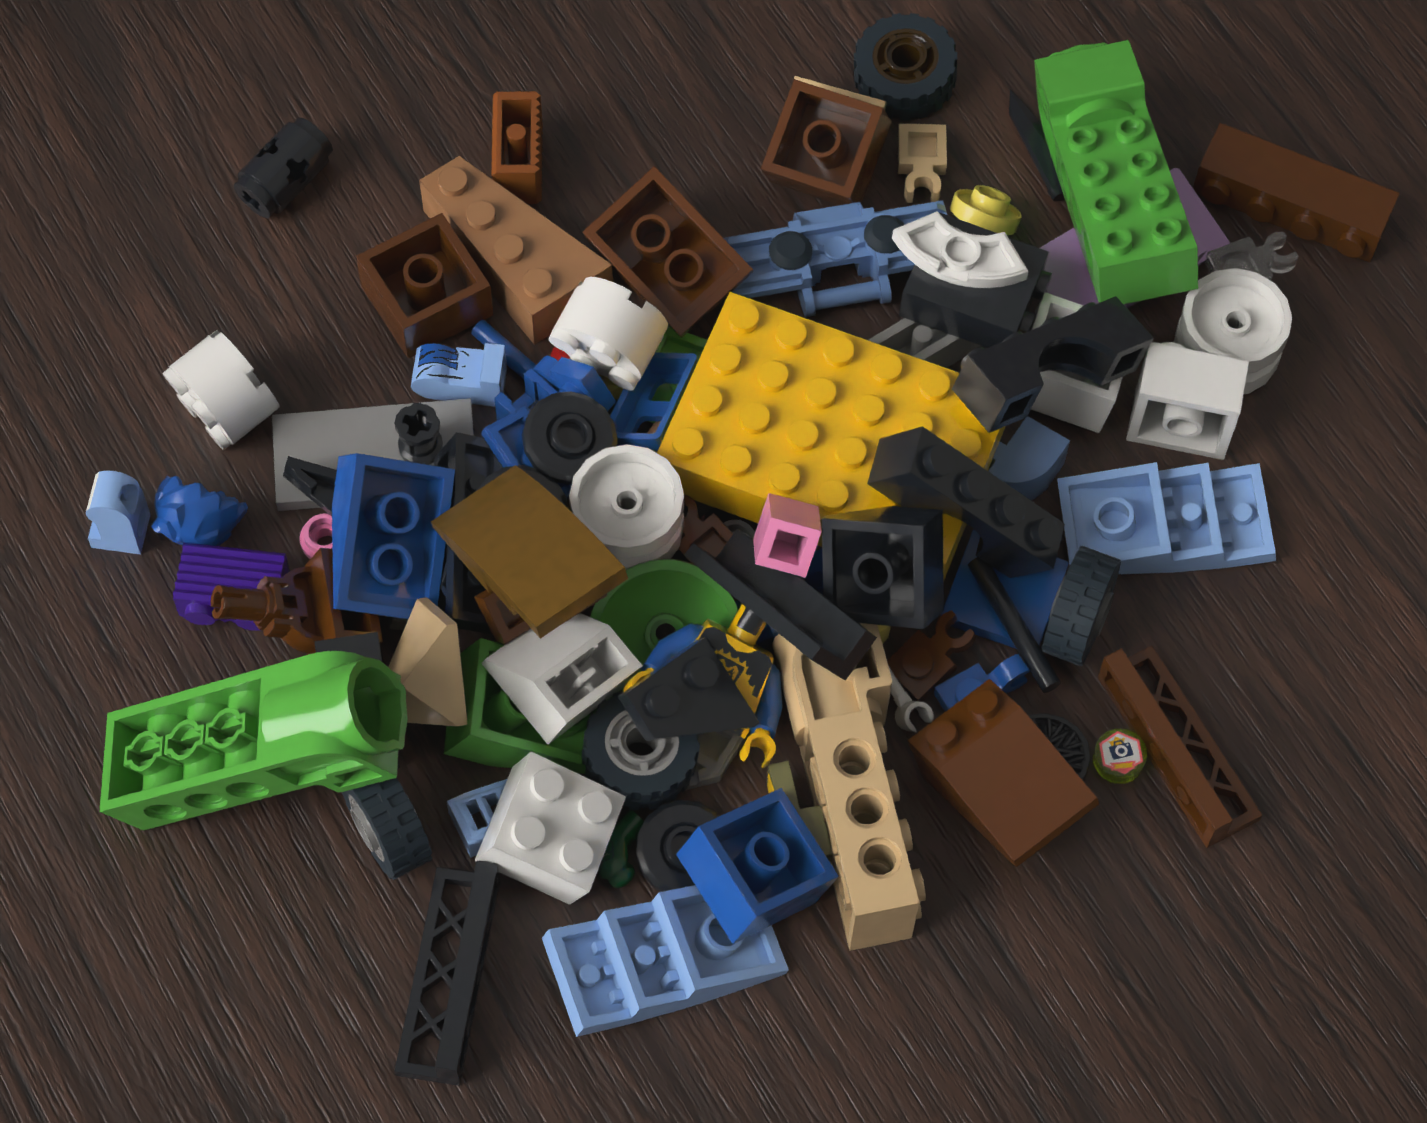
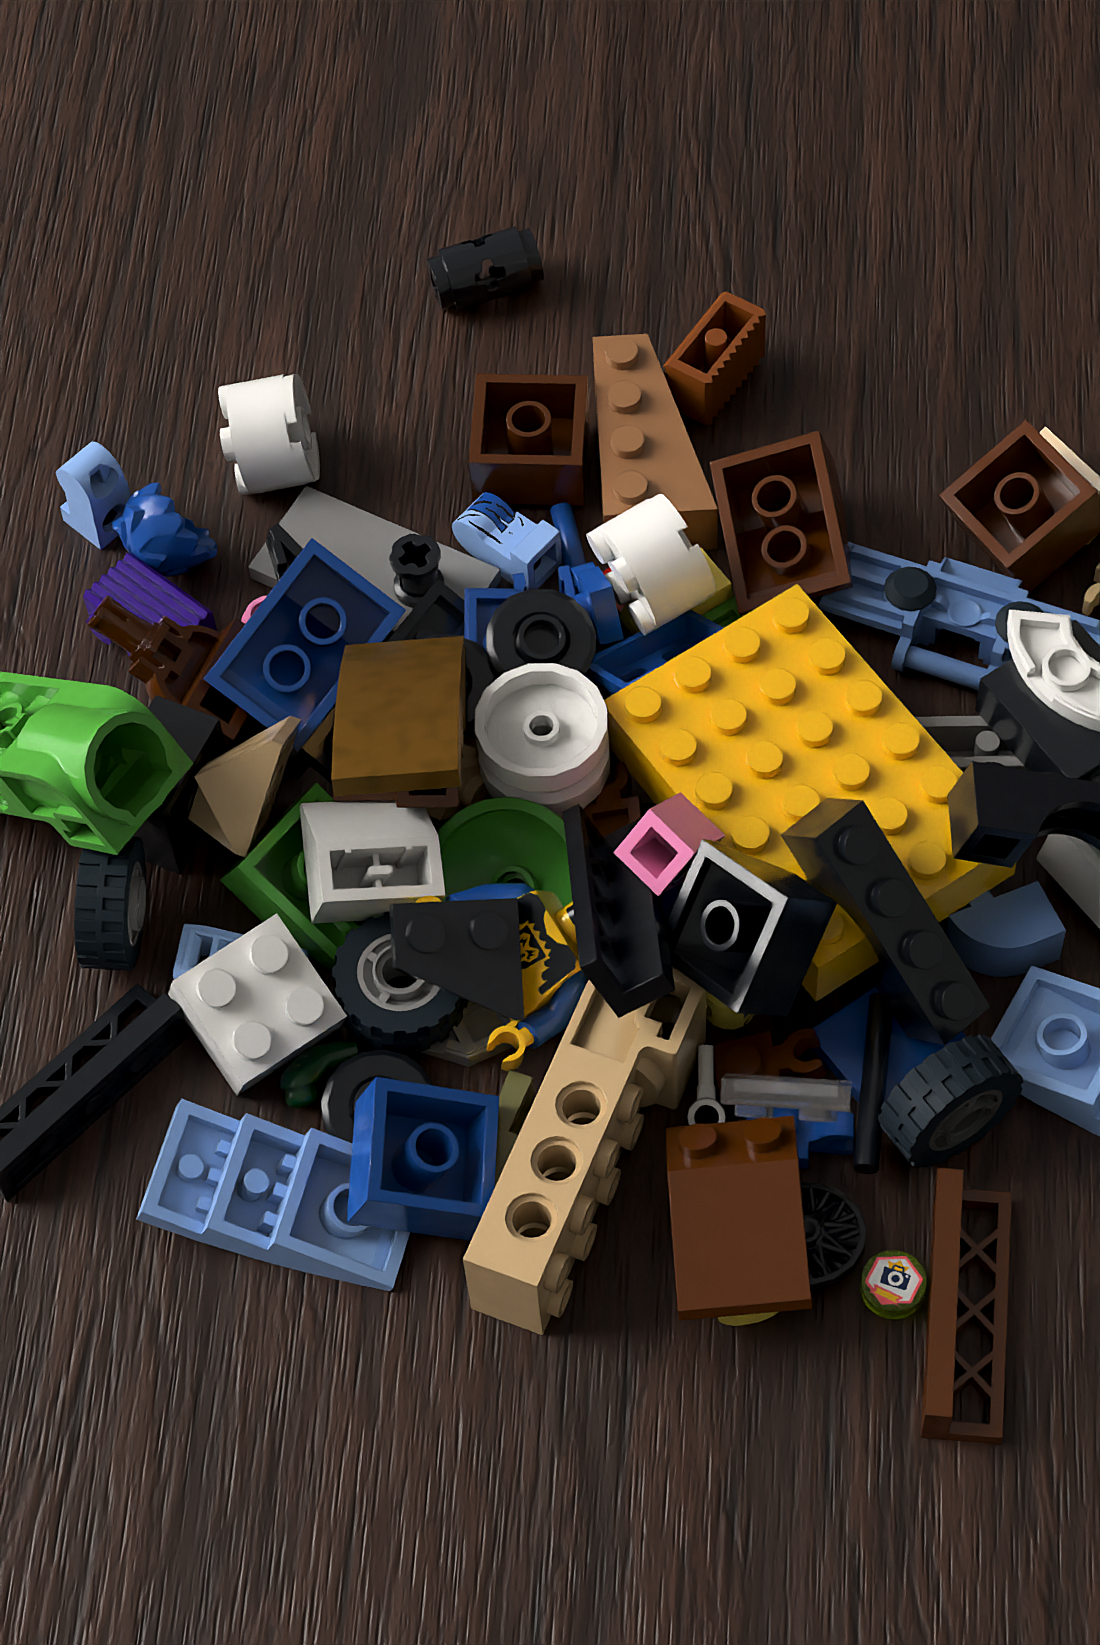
camera: 40 degrees right, 5 degrees down
(989, 659) = (758, 1094): none -> clear plate

